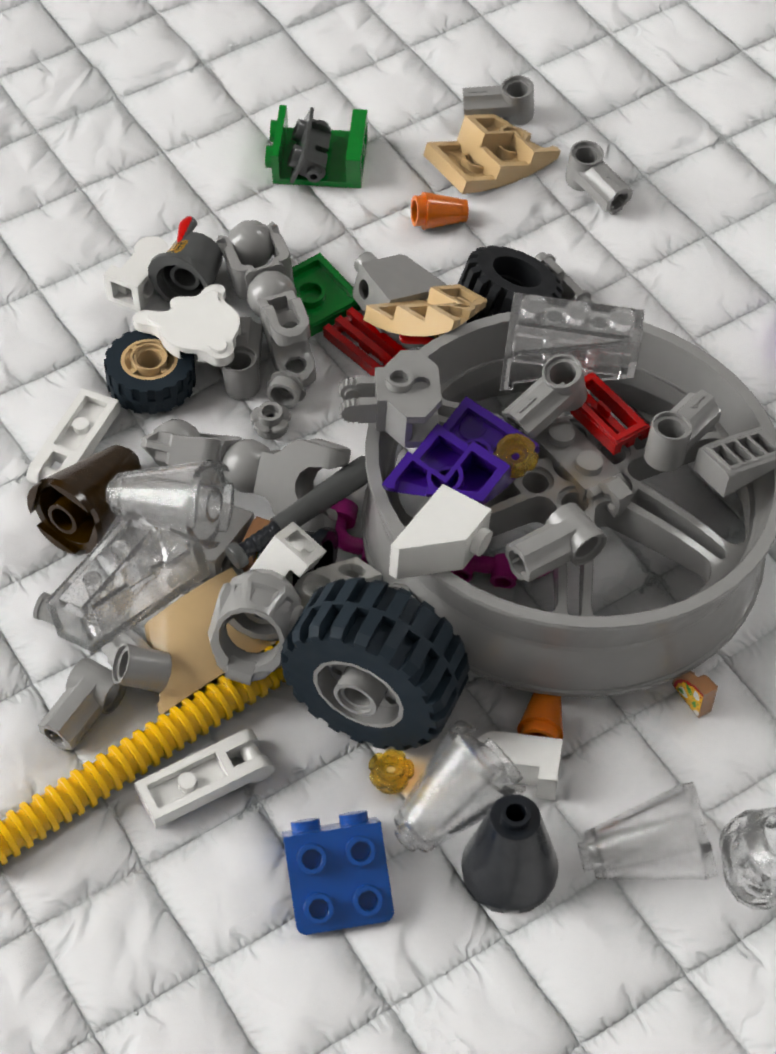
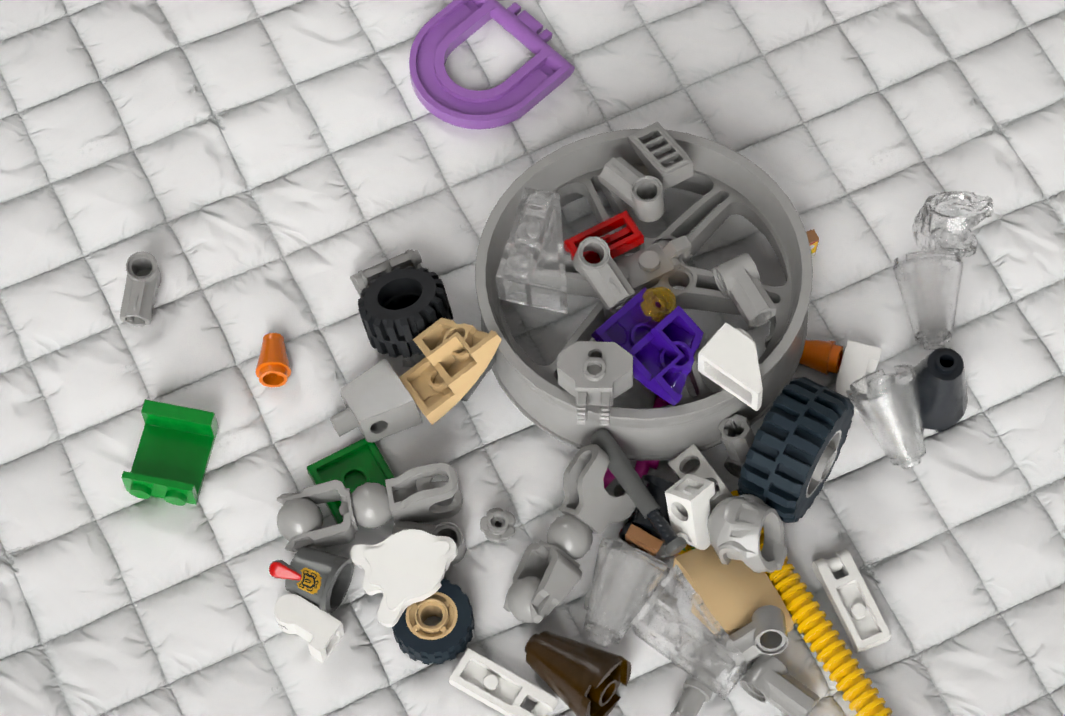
camera: 85 degrees left, 10 degrees up
(285, 388) = (471, 507): light grey plate -> none
(309, 153) = (162, 461): dark grey hinge -> none
(338, 873) = (931, 508): blue bracket -> none
(367, 336) = (404, 436): red tile -> none
(391, 782) = (850, 475): clear yellow plate -> none
(488, 154) = (205, 311): tan slope -> none
(591, 174) = (260, 223): light grey piece -> none

